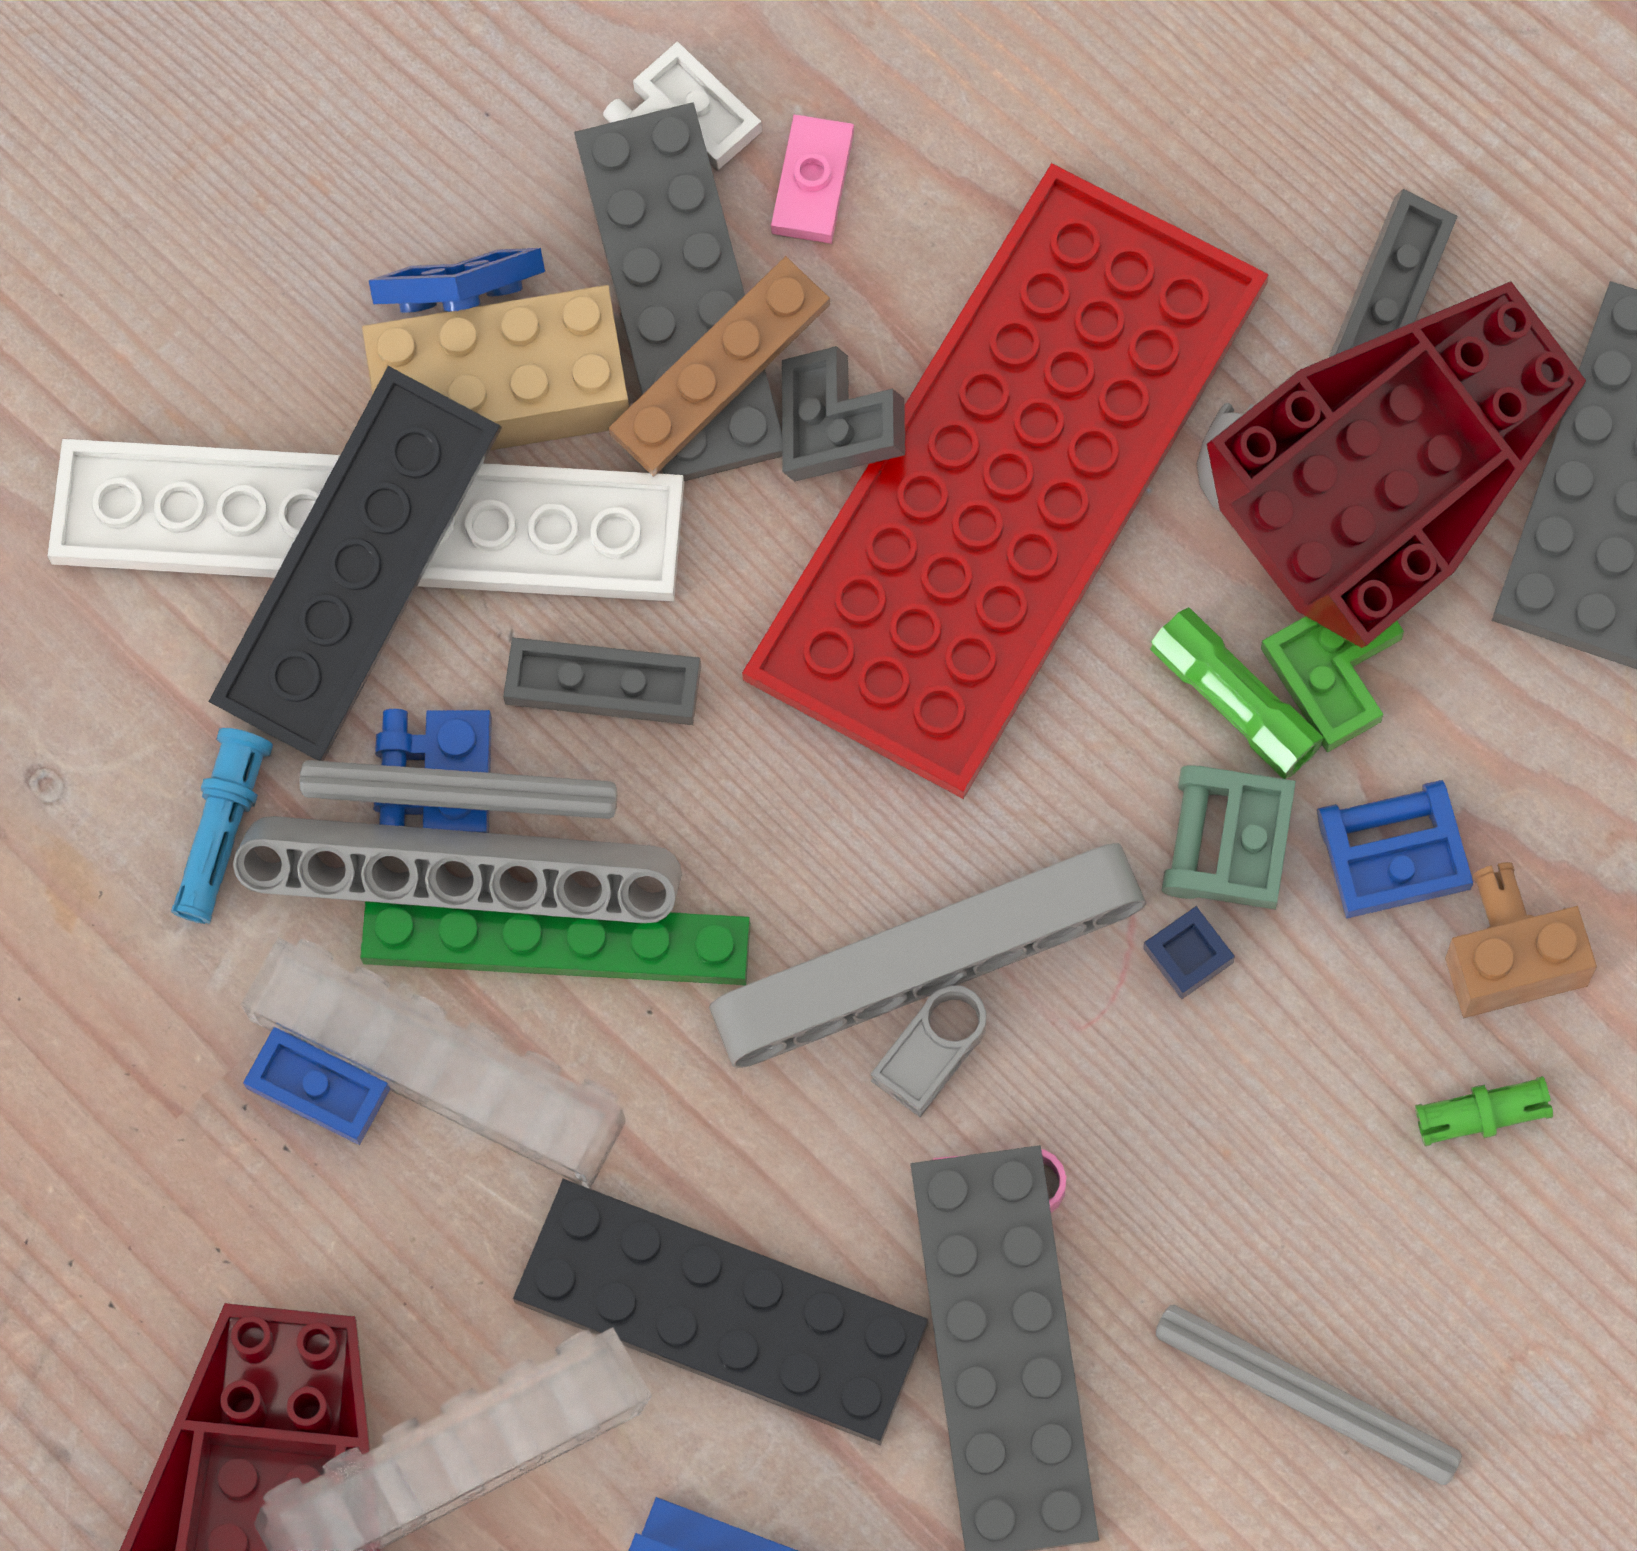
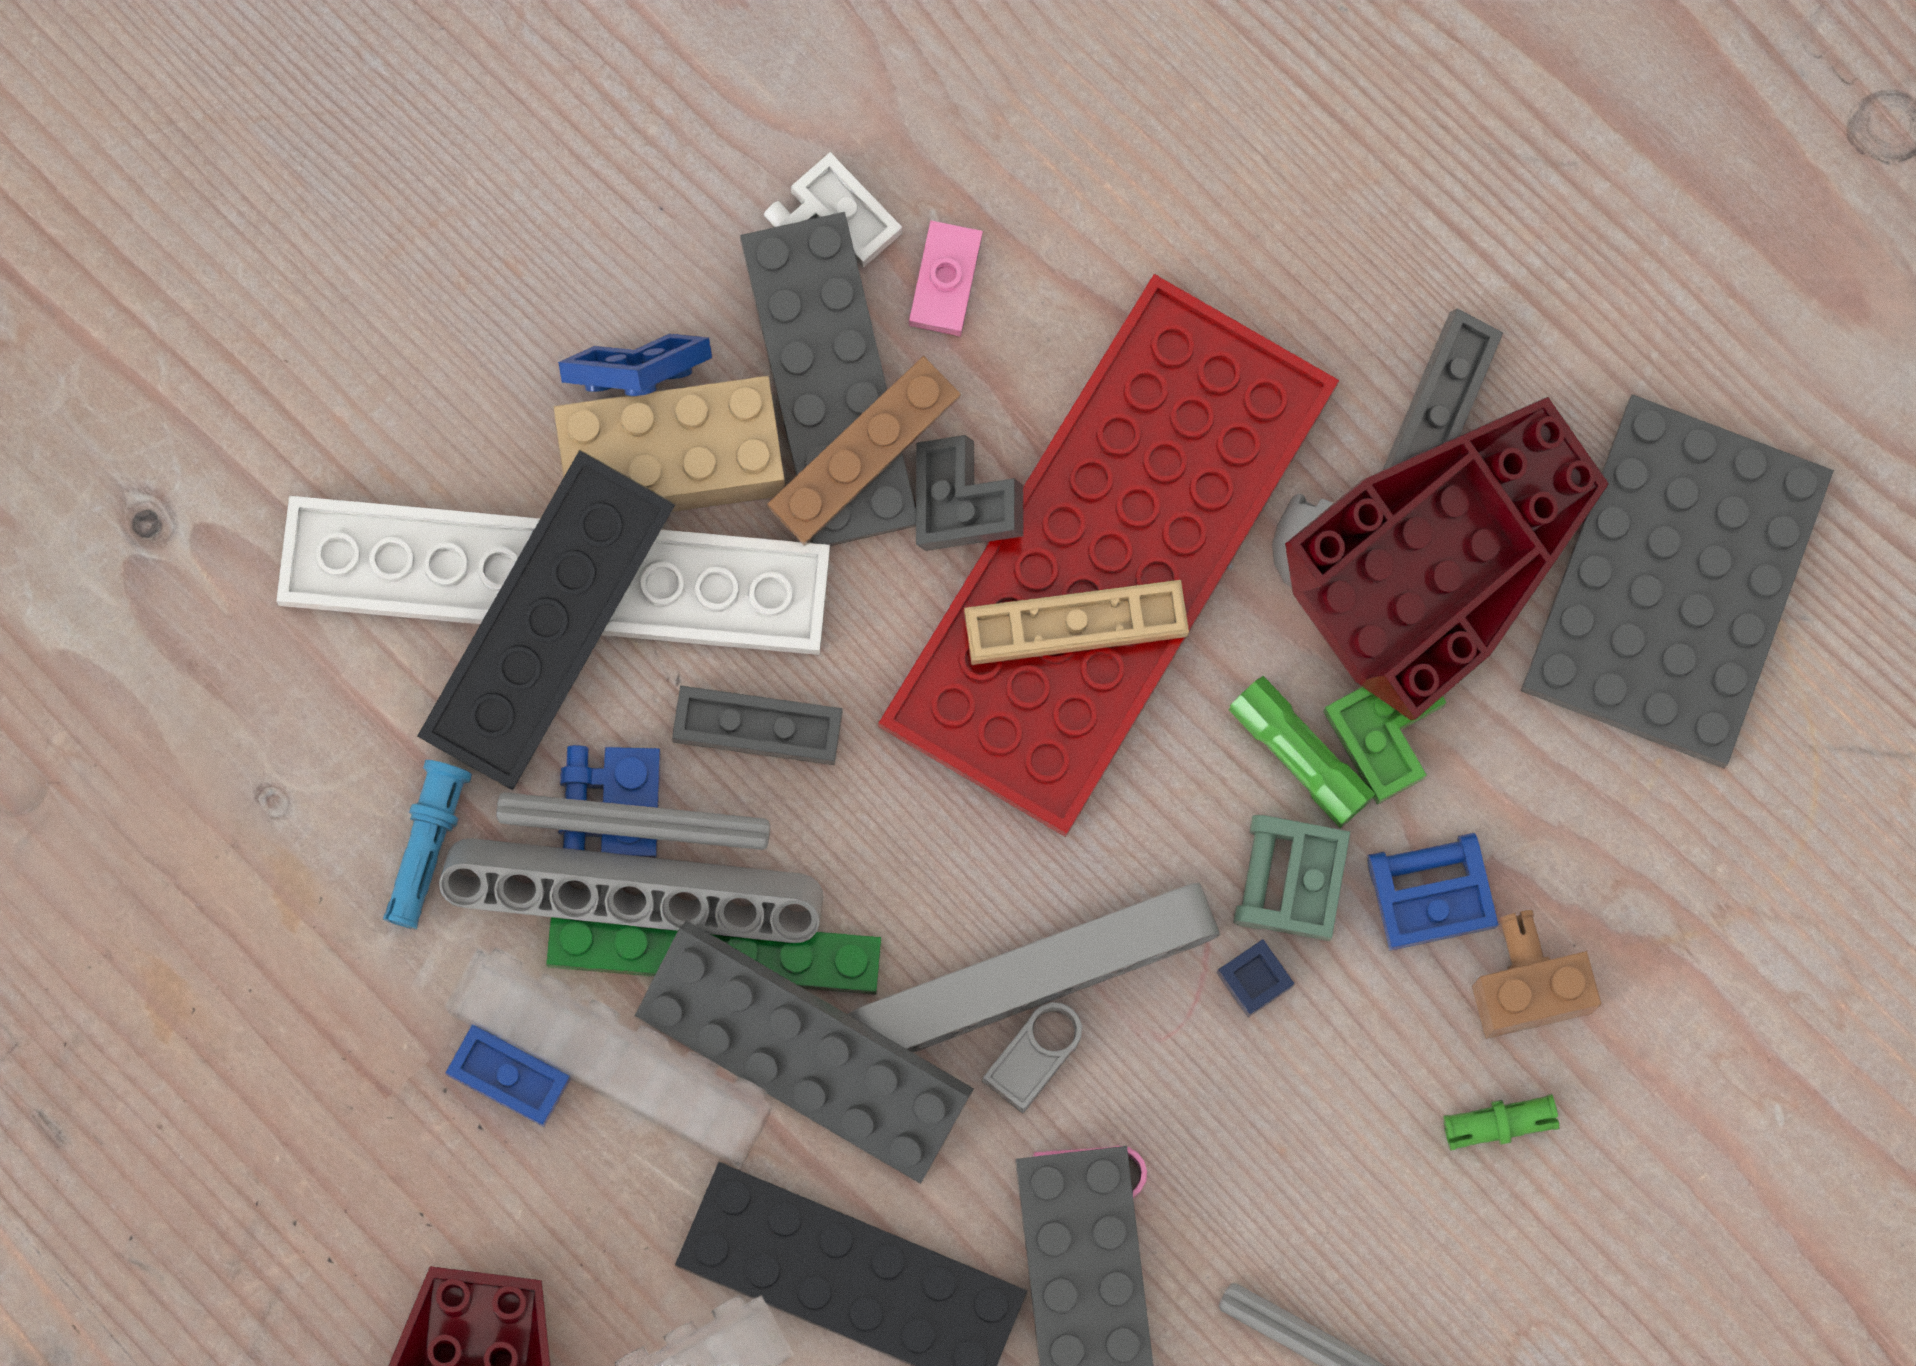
camera: 10 degrees left, 5 degrees up
(661, 1048) = (803, 1051): none -> dark grey plate
(969, 550) = (1076, 622): none -> tan plate

